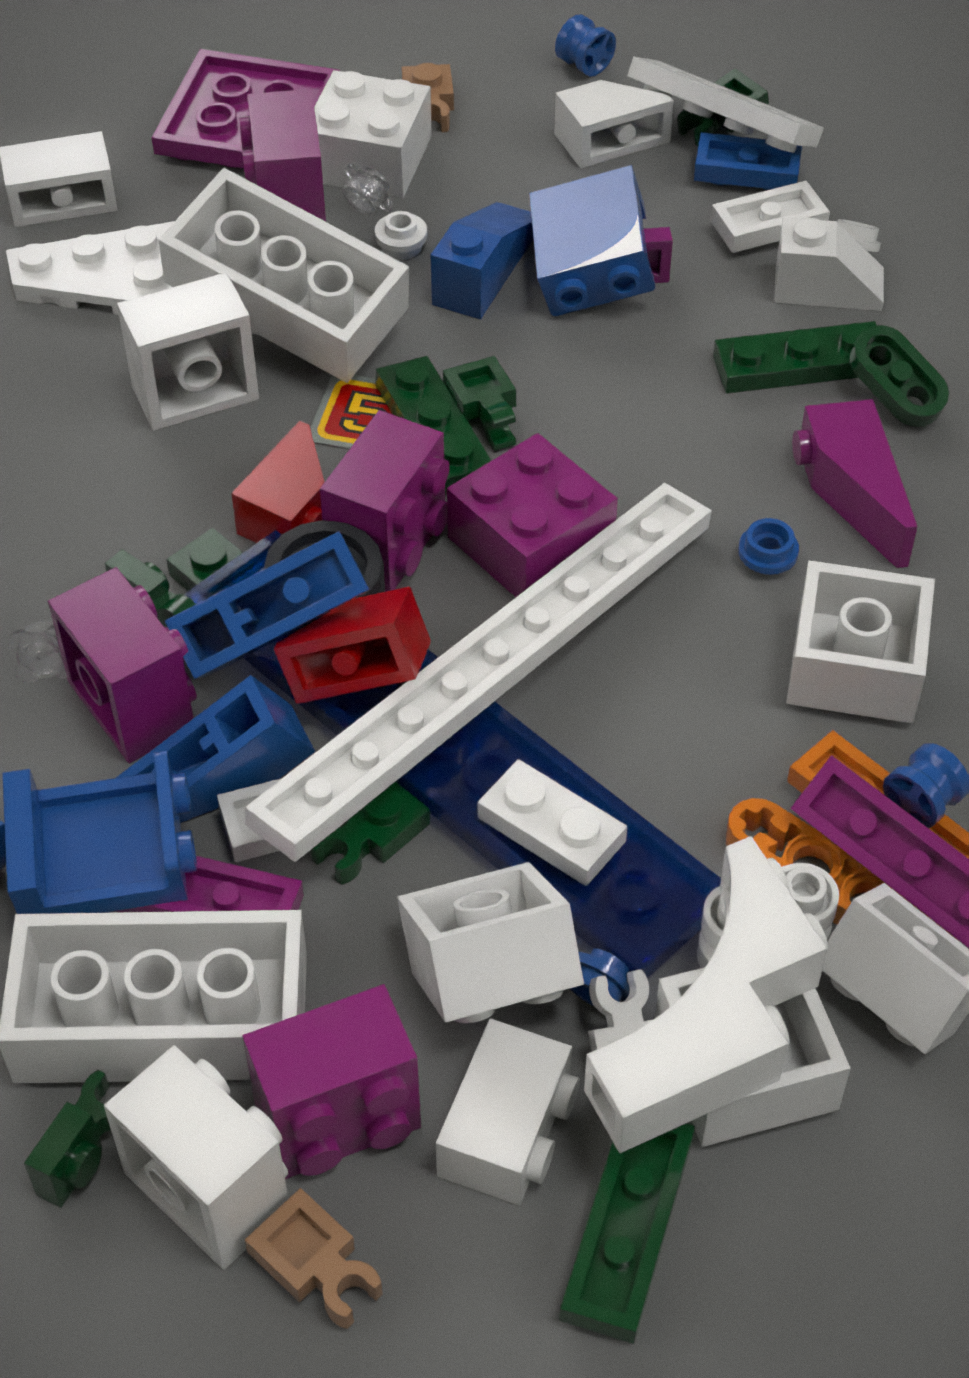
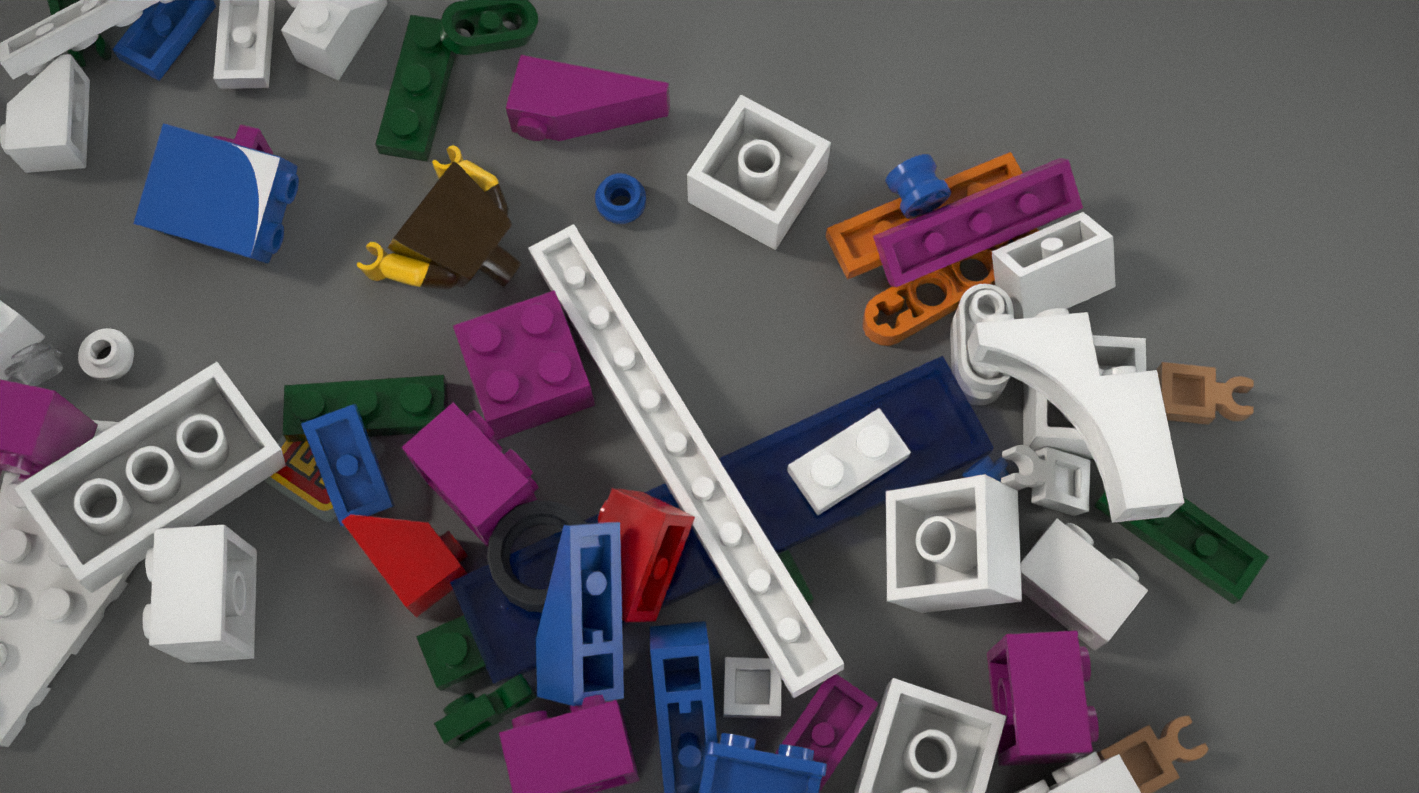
camera: 70 degrees left, 20 degrees up
(380, 389) = (348, 463): none -> blue plate
(478, 258) = (174, 290): blue slope -> none
(485, 392) = (354, 352): dark green plate -> none
(650, 415) = (450, 232): none -> dark brown torso
(829, 1191) = (1194, 395): none -> medium nougat plate

